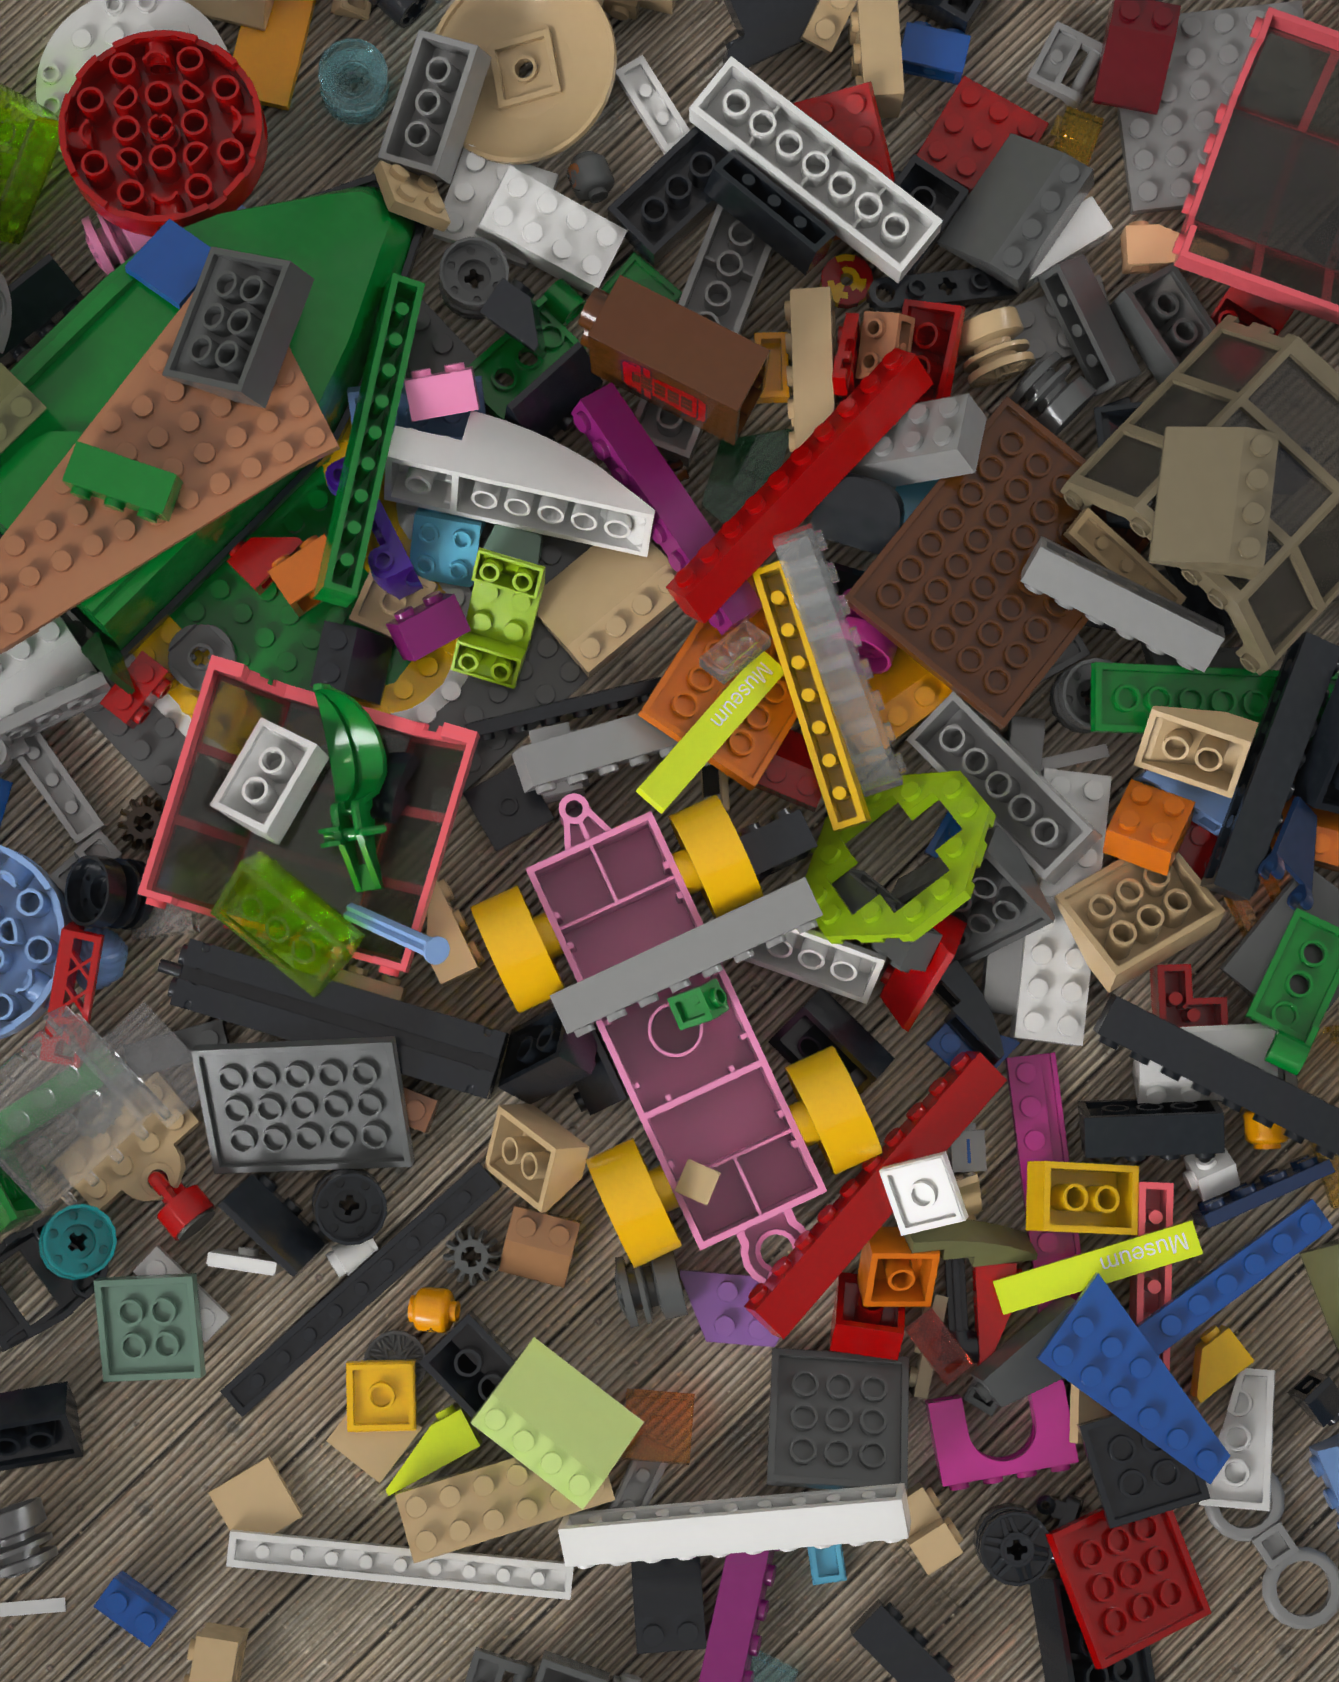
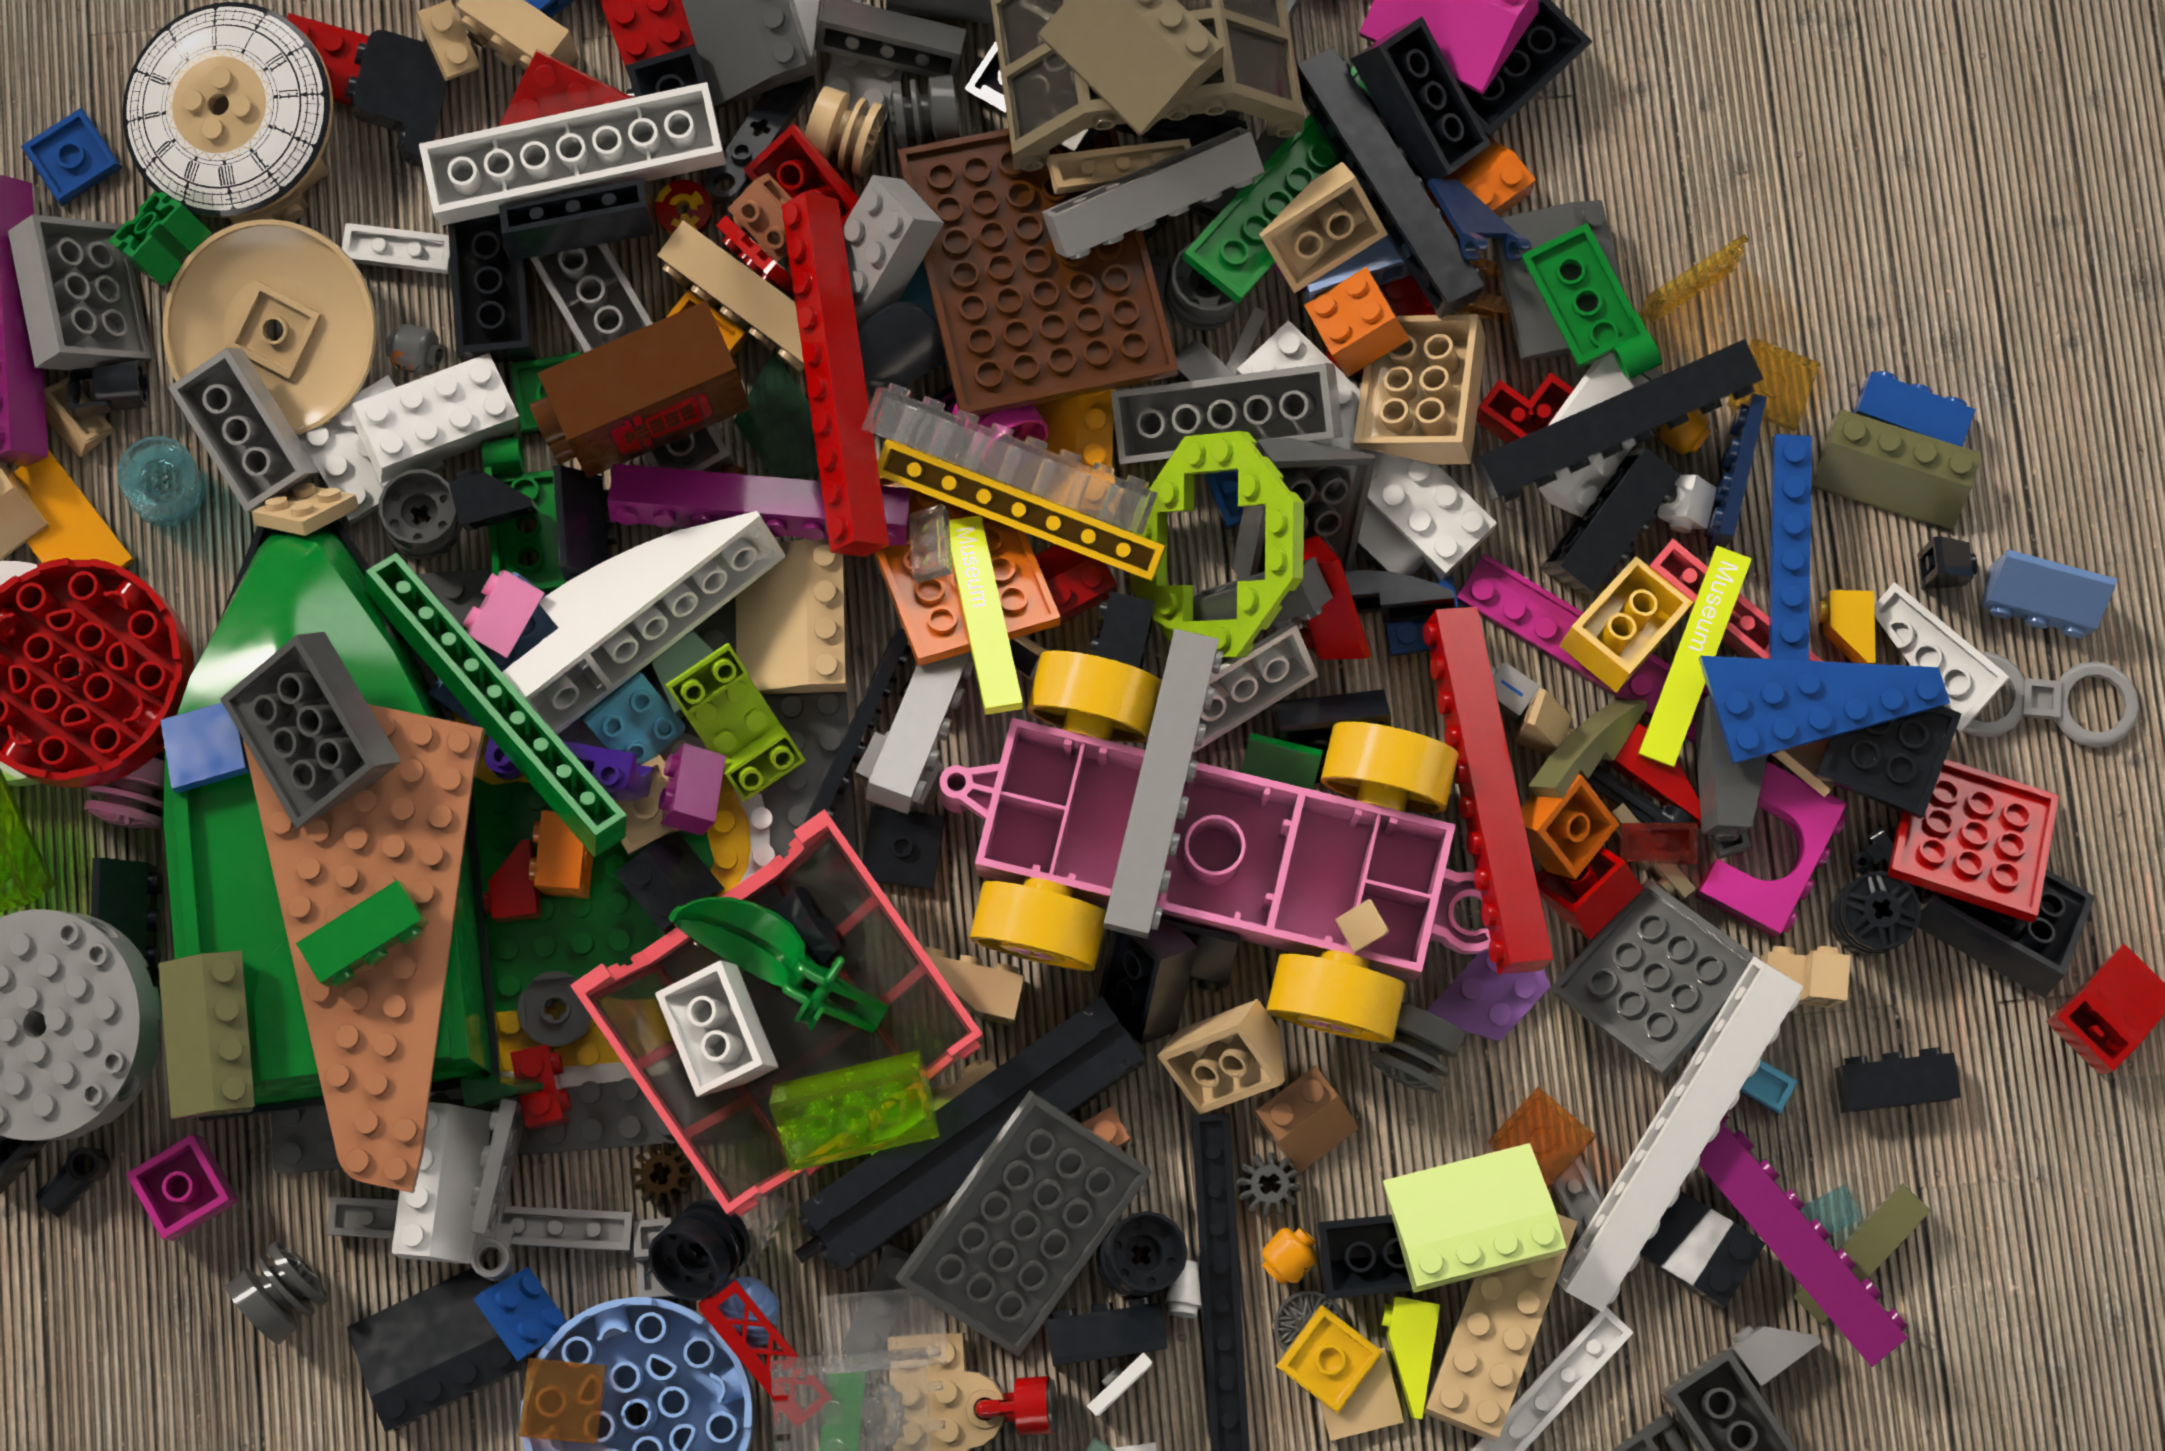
camera: 50 degrees left, 5 degrees down
(433, 949) = (987, 985): light blue axle -> none
(698, 1004) = (1210, 806): green bracket -> none
(777, 1028) = (1281, 761): none -> green tile
(923, 1193) = (1520, 745): white tile -> none

